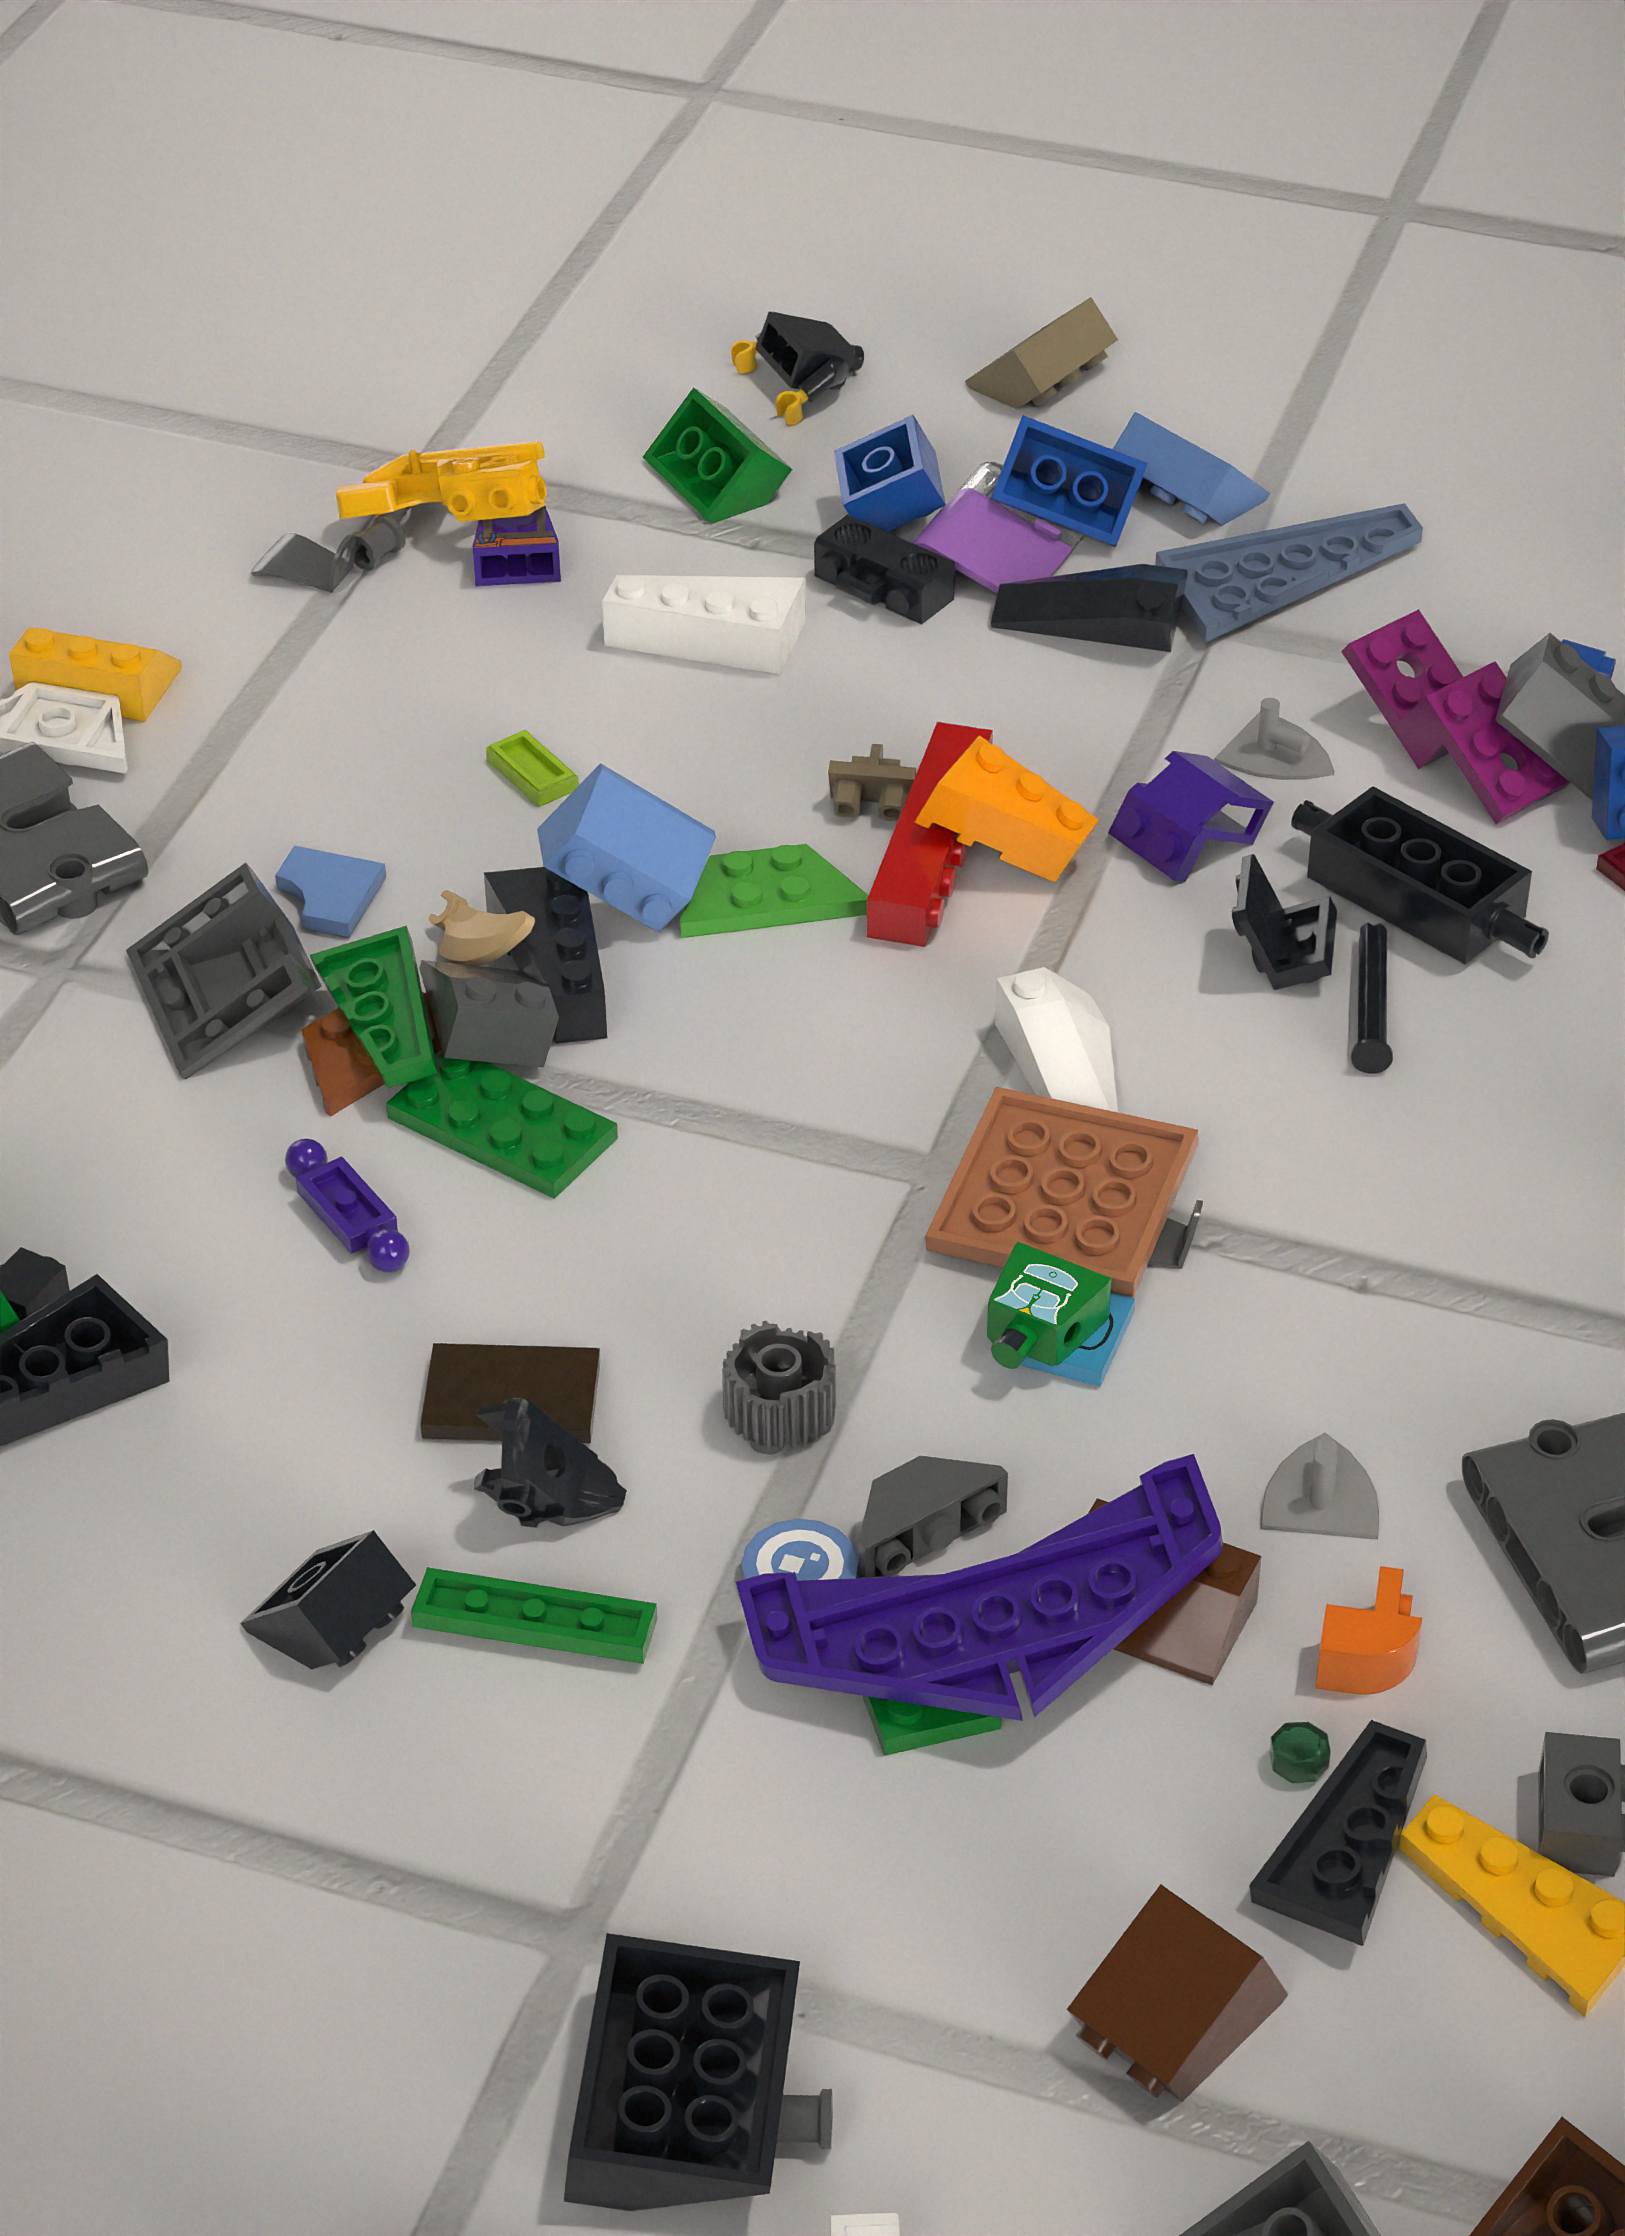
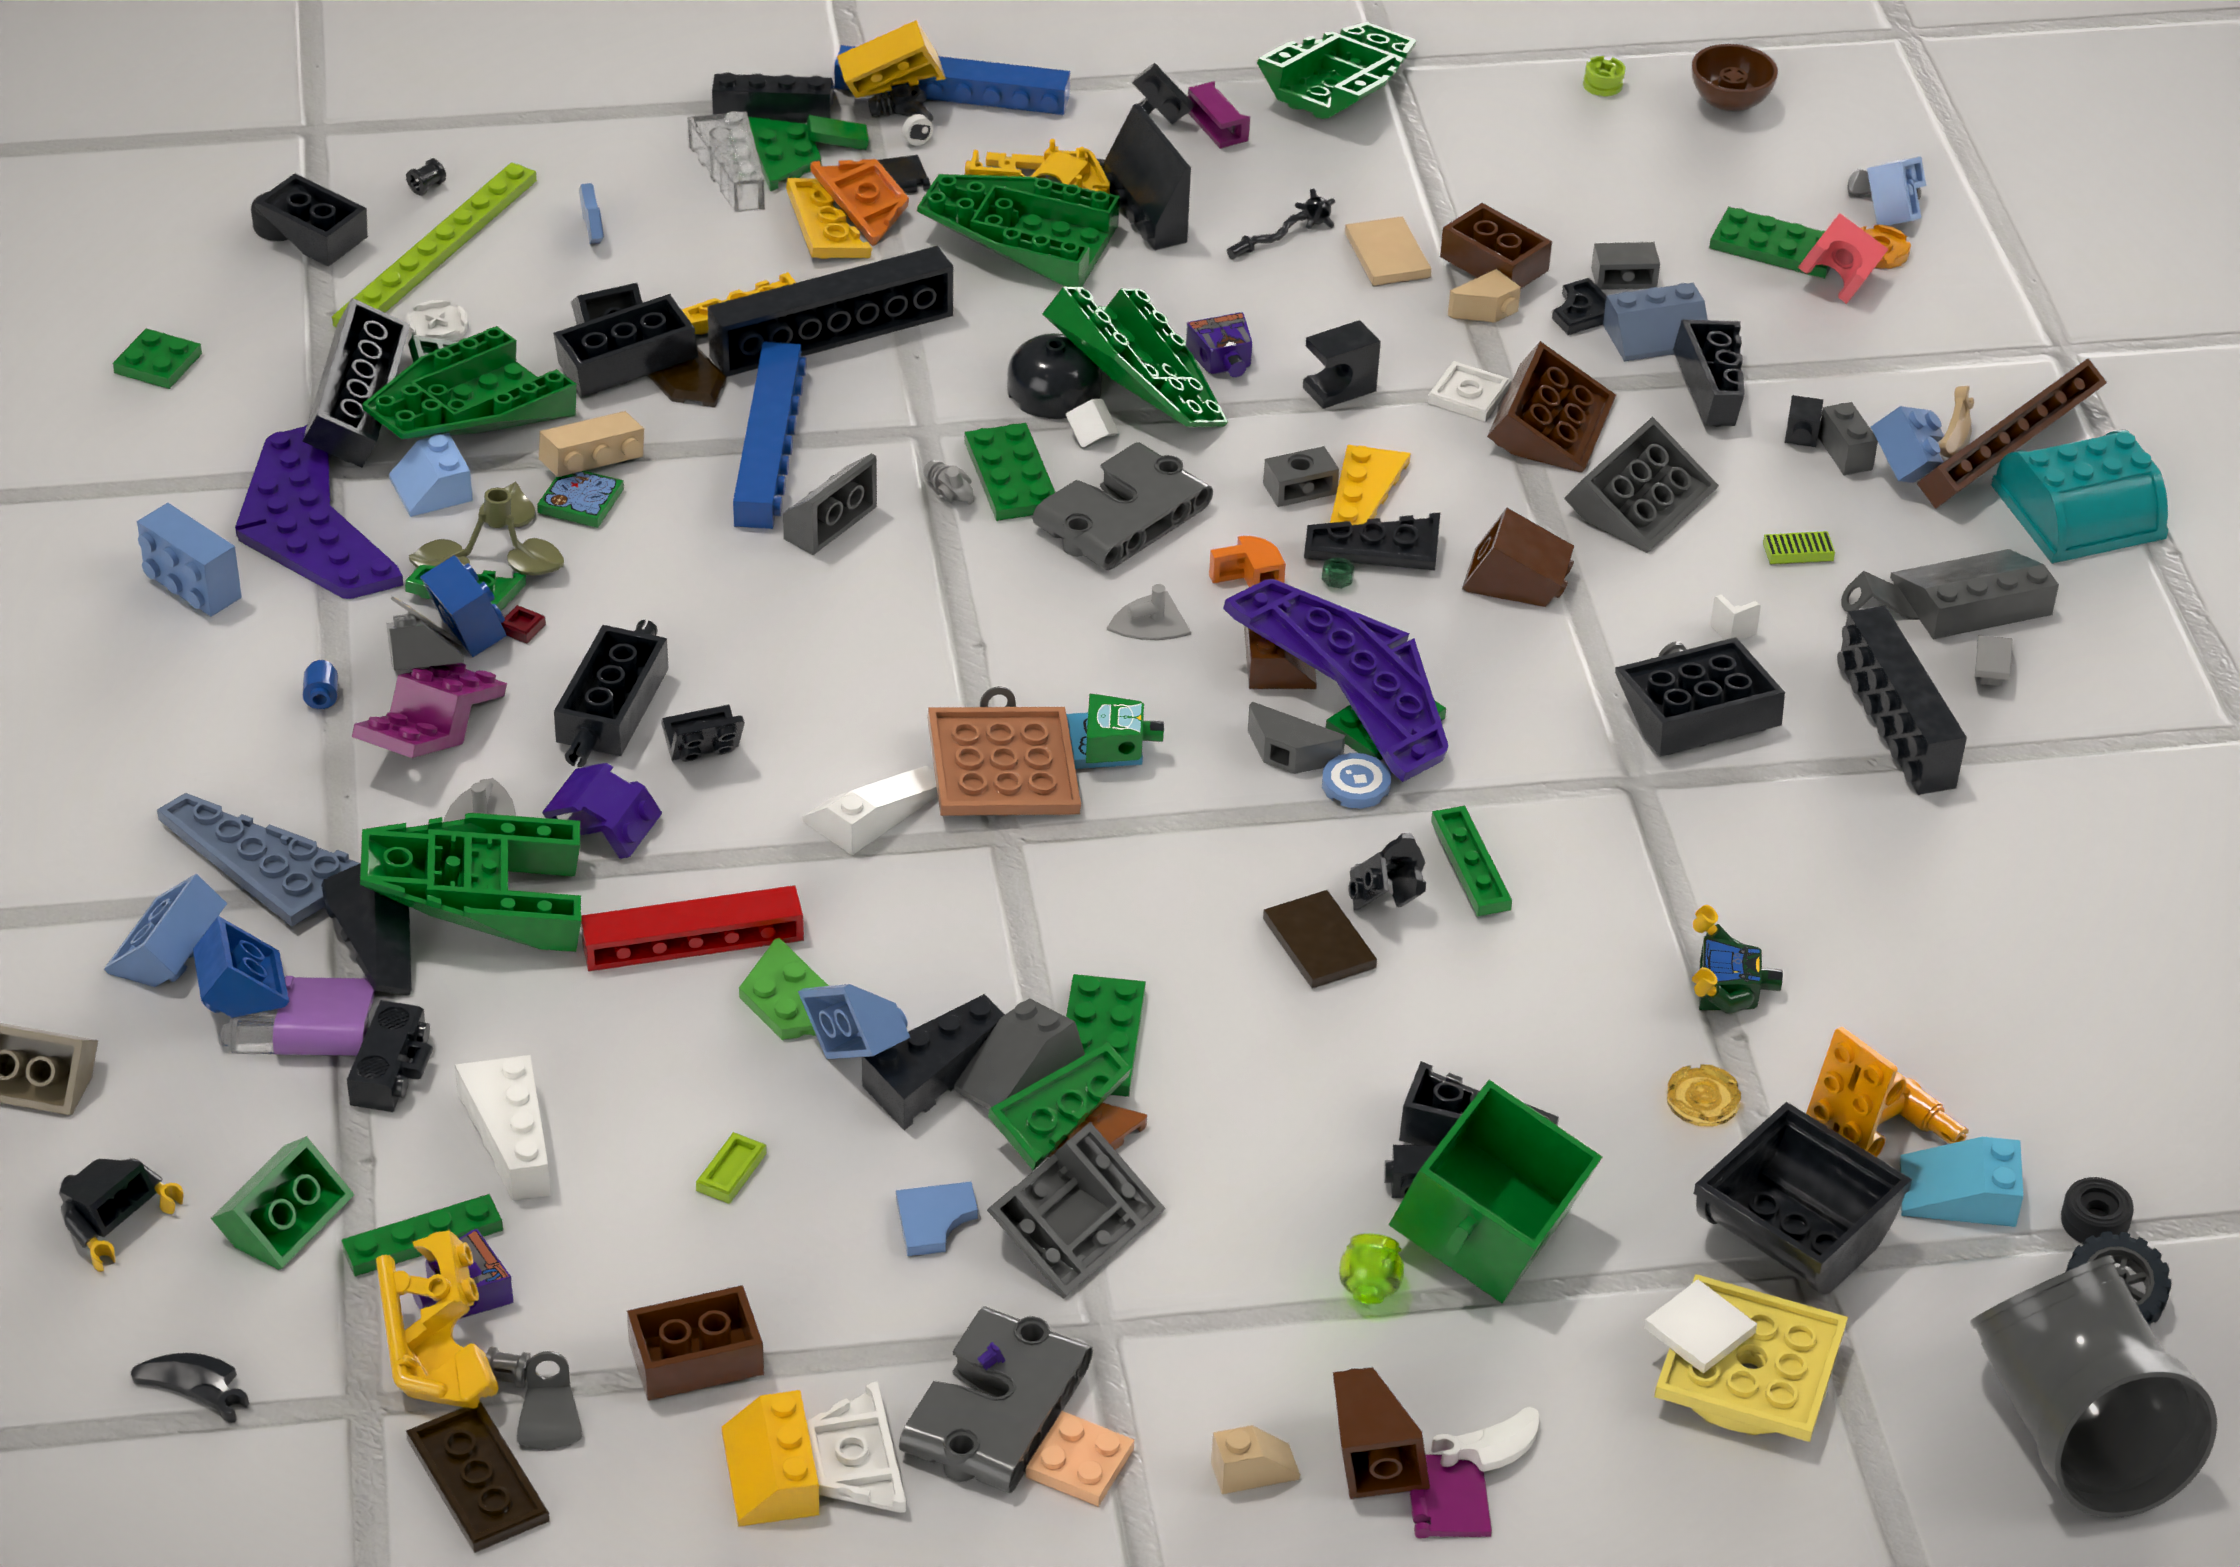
camera: 120 degrees left, 0 degrees up
(52, 816) = (991, 1356): none -> dark purple piece
(74, 1796) = (1729, 970): none -> torso
(262, 505) = (477, 1476): none -> dark brown tile
(281, 648) = (695, 1342): none -> reddish brown brick
(333, 1602) = (1529, 940): black slope -> none
(347, 1205) = (1230, 1066): dark purple plate -> none
(476, 935) = (954, 1096): tan piece -> none
(532, 381) = (194, 1376): none -> black piece
(610, 540) = (398, 1237): none -> green plate
(779, 1387) = (1247, 816): flat silver brick -> none
(872, 781) = (658, 974): dark tan hips -> none
(890, 476) = (284, 1071): blue brick -> none
(1010, 810) = (680, 872): light orange wedge -> none
(1113, 622) = (463, 868): none -> green wedge
(1372, 1051) = (731, 693): black axle -> none

